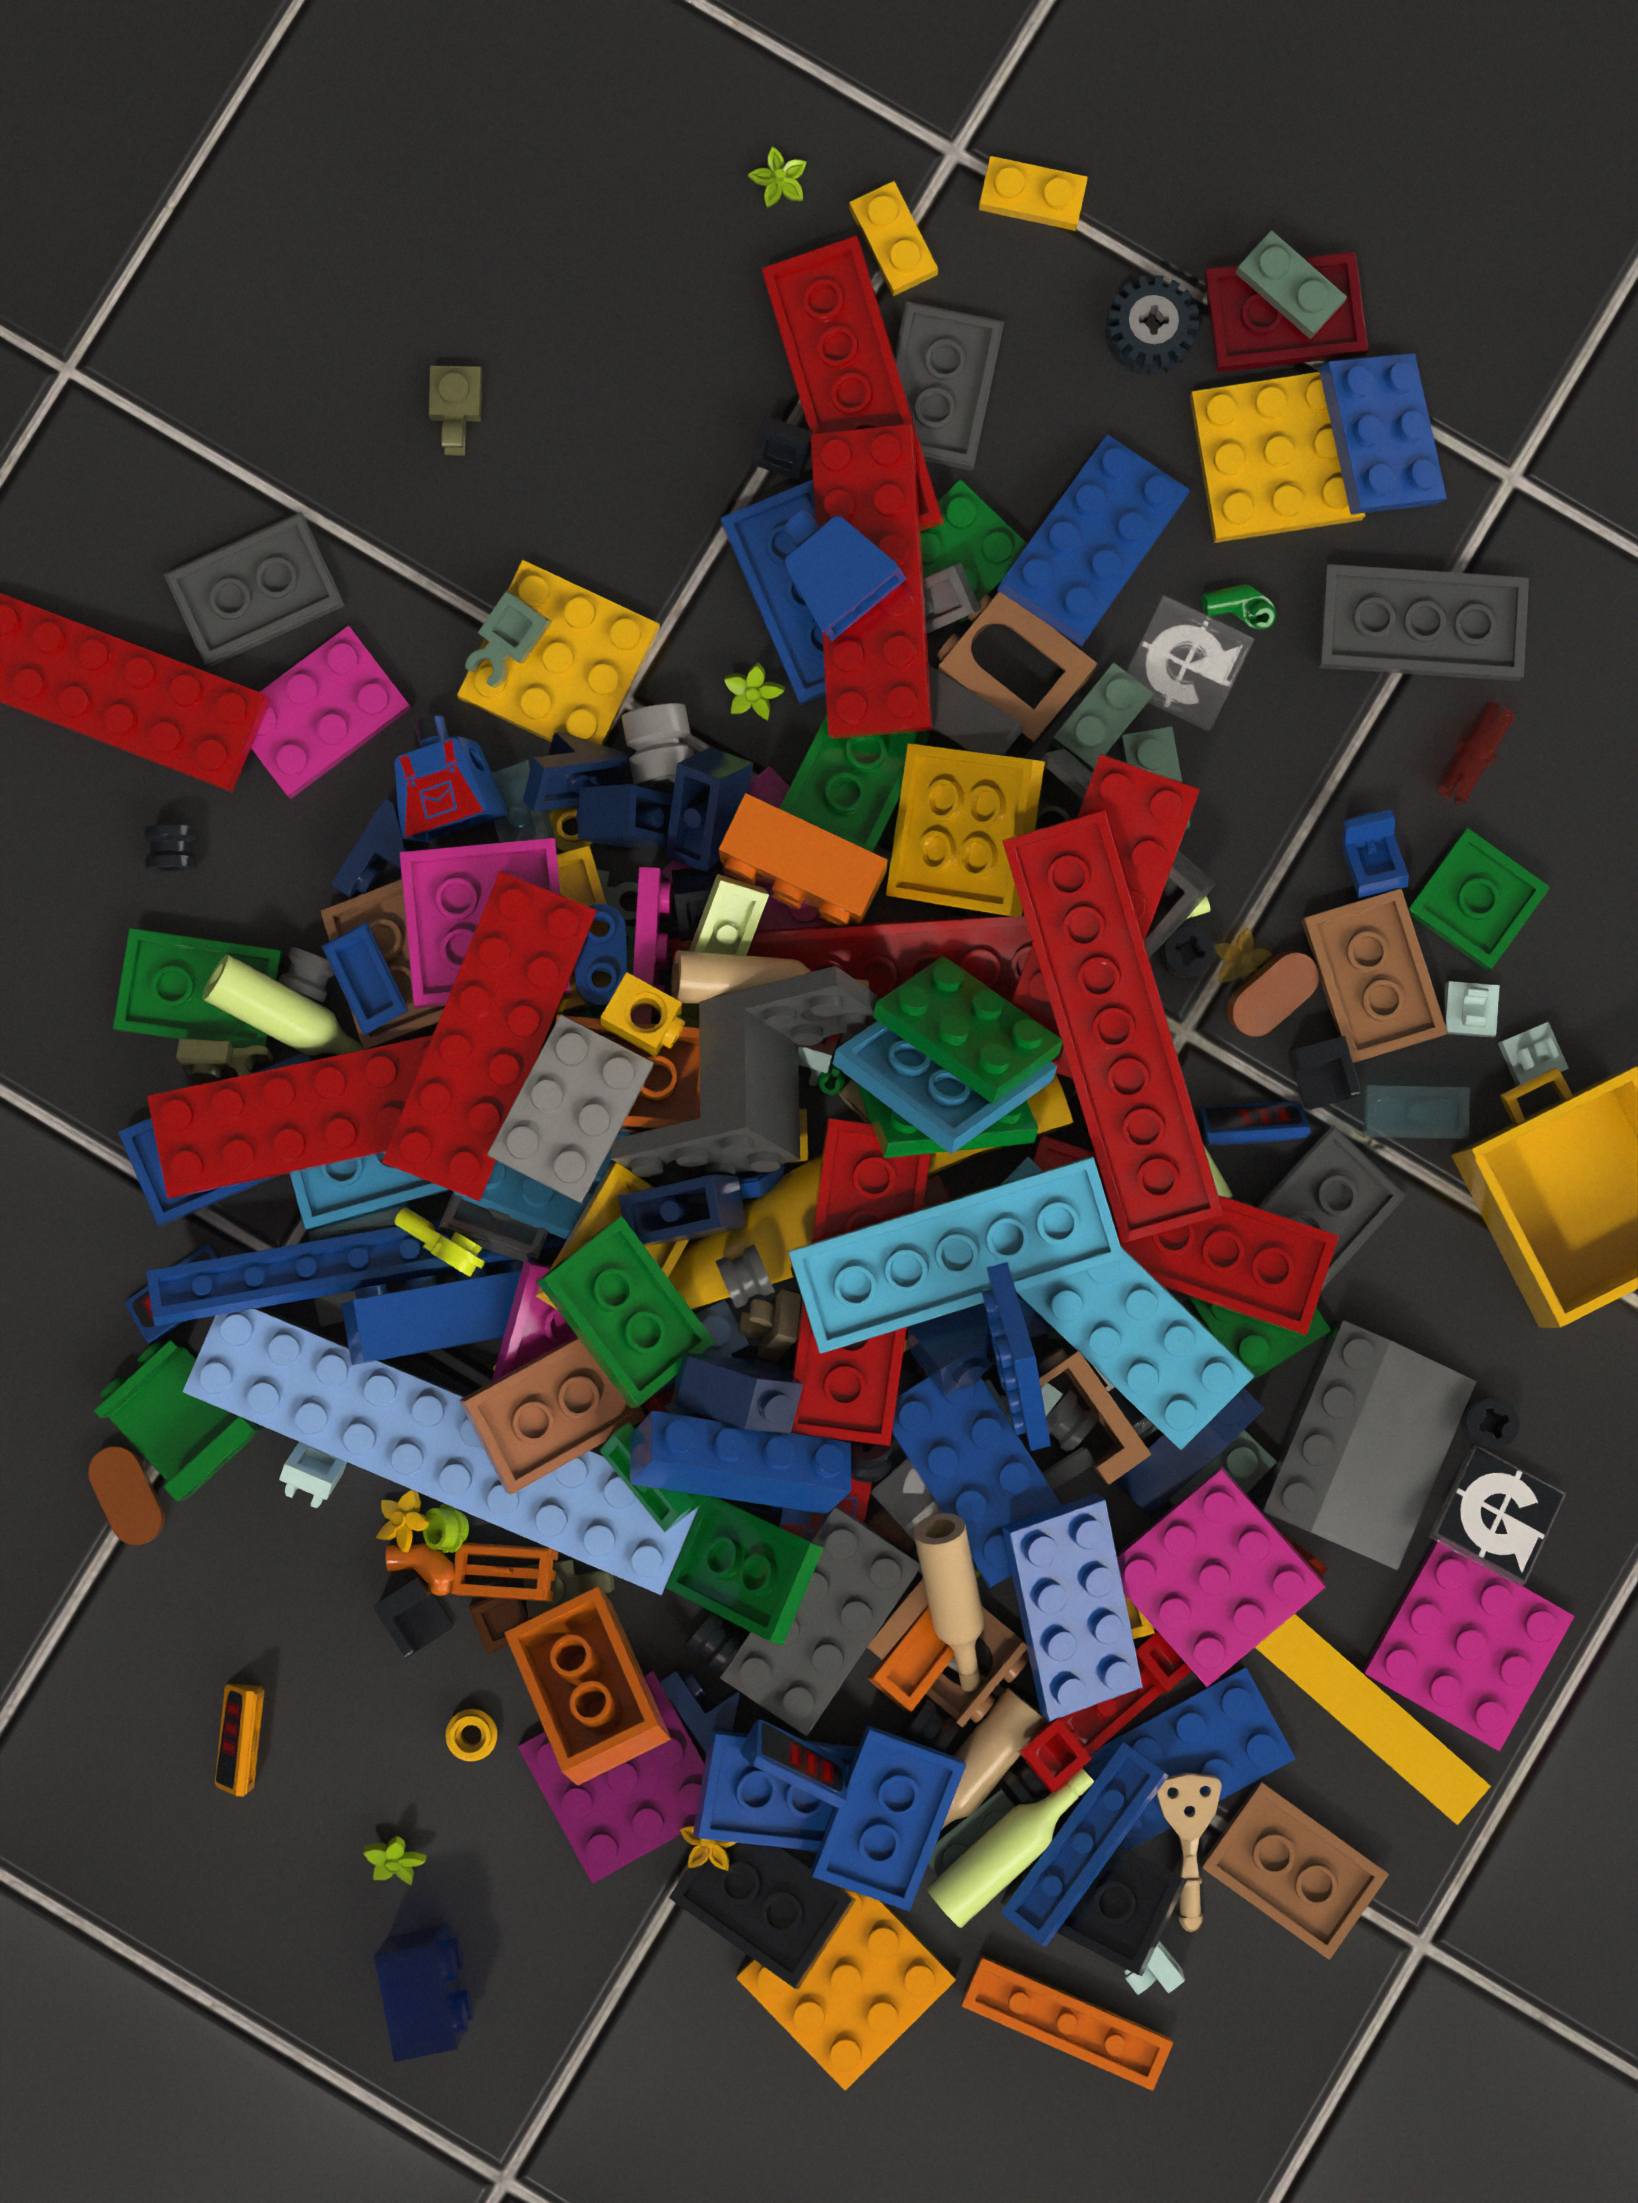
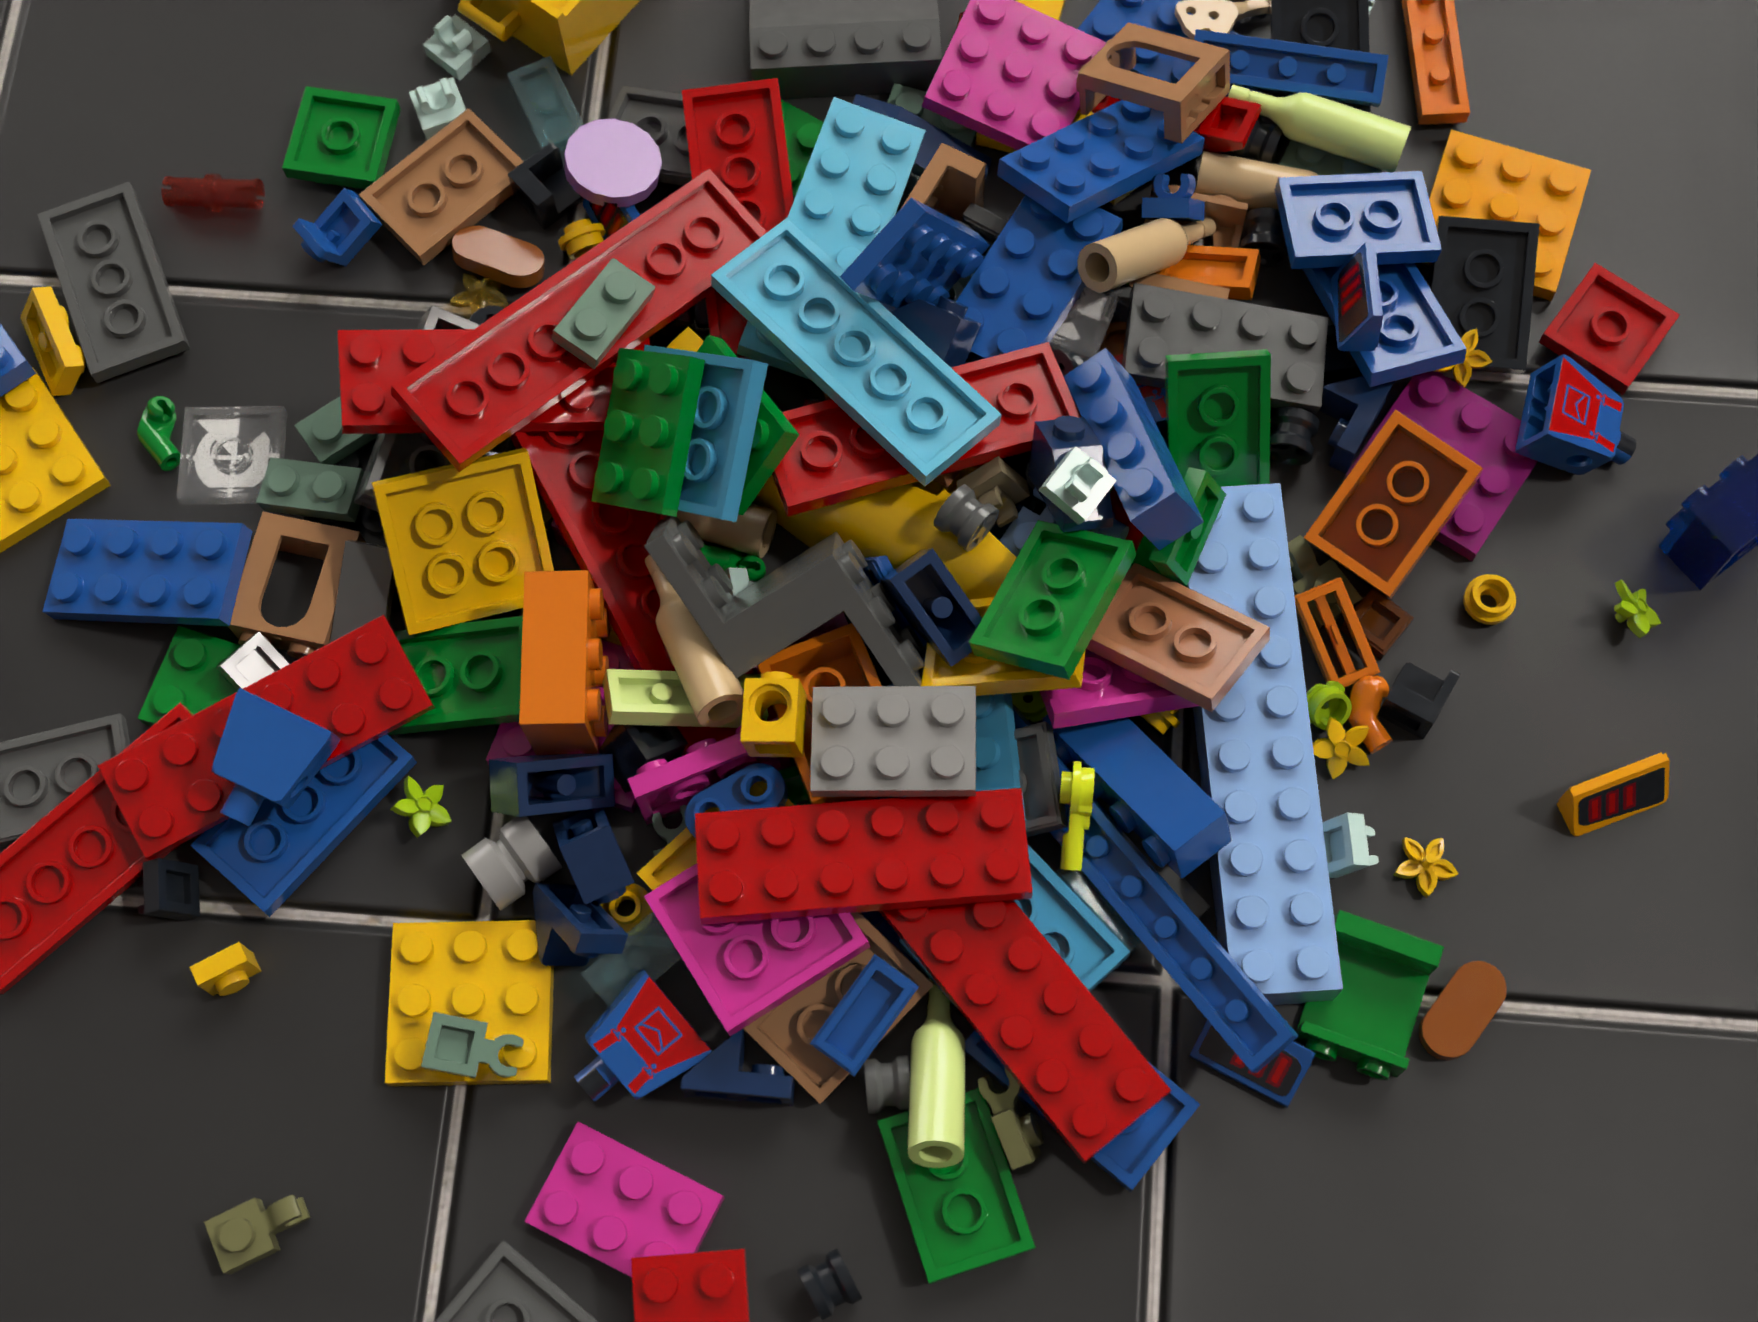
camera: 110 degrees left, 15 degrees down
(265, 1536) = (1425, 864): none -> yellow plant
(594, 1907) = (1572, 420): none -> blue torso
(673, 2005) = (1609, 328): none -> red plate
(683, 466) = (226, 970): none -> yellow plate
(712, 1383) = (1077, 485): none -> light aqua tile
(989, 1651) = (1176, 205): none -> blue tile
(1077, 1702) = (1183, 103): none -> medium nougat panel
(1101, 1040) = (603, 313): none -> sand green plate
(1250, 1080) = (581, 237): none -> yellow plate
(1303, 1138) = (612, 162): none -> tile
(1395, 542) = (52, 341): none -> yellow plate

